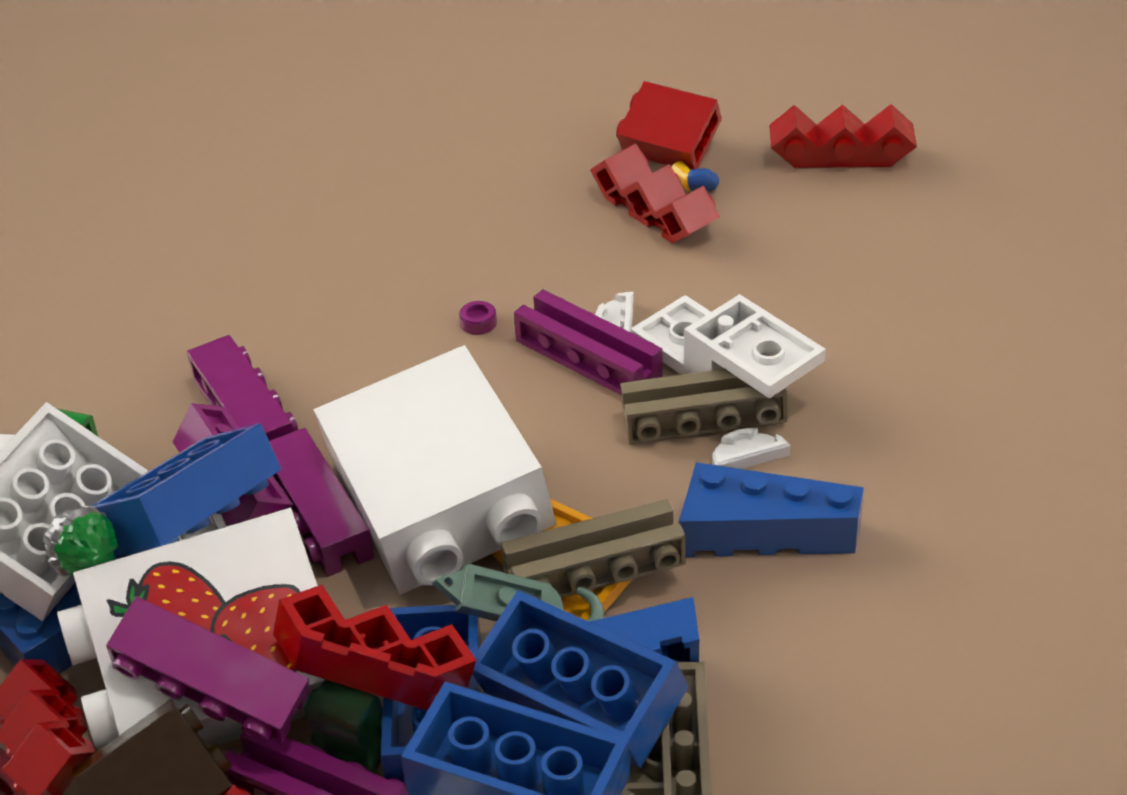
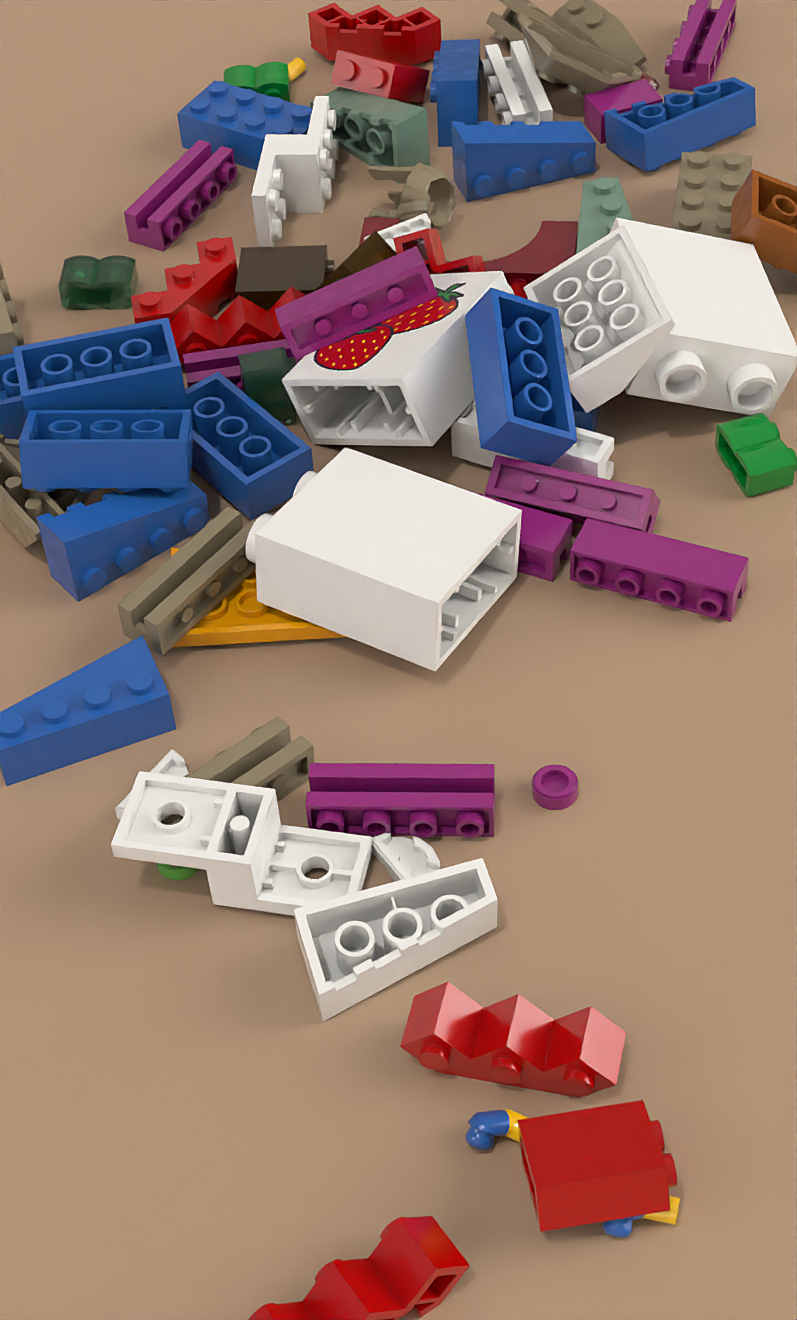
camera: 145 degrees right, 5 degrees up
(79, 540) = (526, 279): green piece -> none
(369, 649) = (257, 365): red brick -> none
(488, 592) = (216, 493): sand green plate -> none
(668, 266) = (391, 930): none -> white wedge

